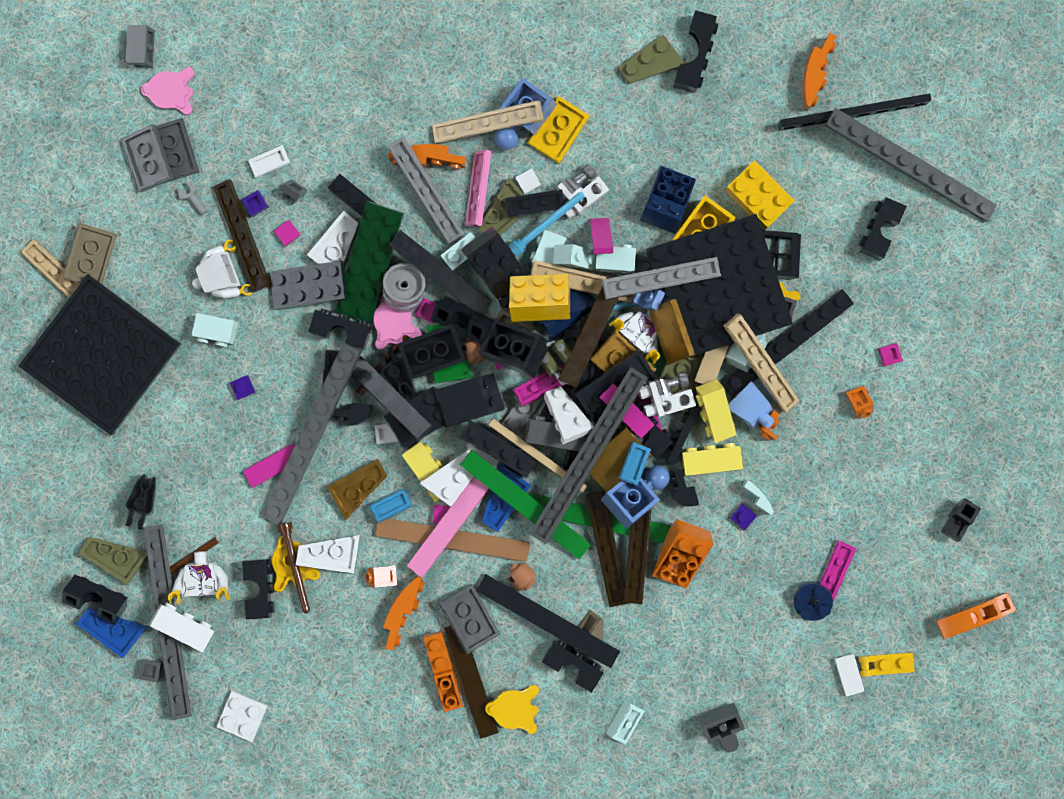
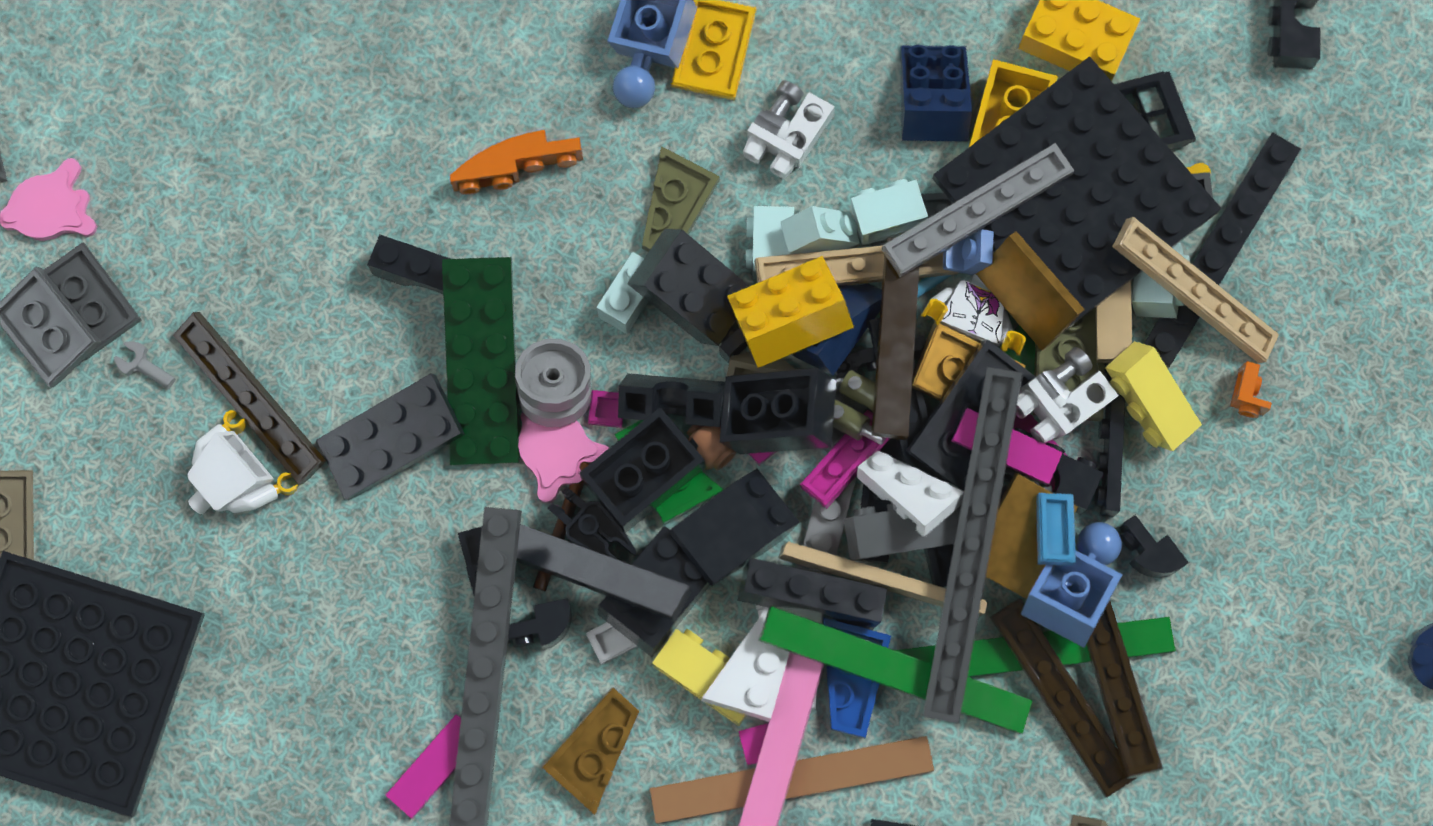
camera: 20 degrees left, 10 degrees down
(214, 329) = (253, 568): light aqua piece -> none
(242, 387) = (335, 651): dark purple plate -> none
(255, 203) = (253, 336): dark purple plate -> none
(269, 161) = (253, 262): white tile -> none
(287, 233) = (324, 366): dark pink tile -> none
(293, 190) = (313, 292): dark grey tile -> none
(336, 240) = (411, 348): white wing -> none
(357, 332) = (440, 487): black arch -> none
(390, 506) = (664, 761): dark azure tile -> none
(426, 190) = (533, 213): light grey tile -> none
(438, 272) = (602, 334): black tile -> none
(478, 188) = (618, 182): bright pink tile -> none
(487, 122) = (596, 69): tan tile -> none
(518, 246) = (721, 247): medium azure piece -> none
(521, 576) = (936, 799): nougat head -> none
(528, 181) = (695, 143): white tile -> none
(534, 203) = (722, 169): black plate -> none
(601, 236) = (851, 182): dark pink tile -> none
(682, 553) = (1194, 656): orange slope -> none
(711, 459) = (1177, 482): light yellow brick -> none
(743, 516) = (1268, 559): dark purple plate -> none
(751, 407) = (1210, 370): light blue torso -> none
(761, 501) = (1288, 521): light aqua slope -> none
(860, 402) = (1380, 300): orange bracket -> none
(890, 354) = (1393, 209): dark pink tile -> none

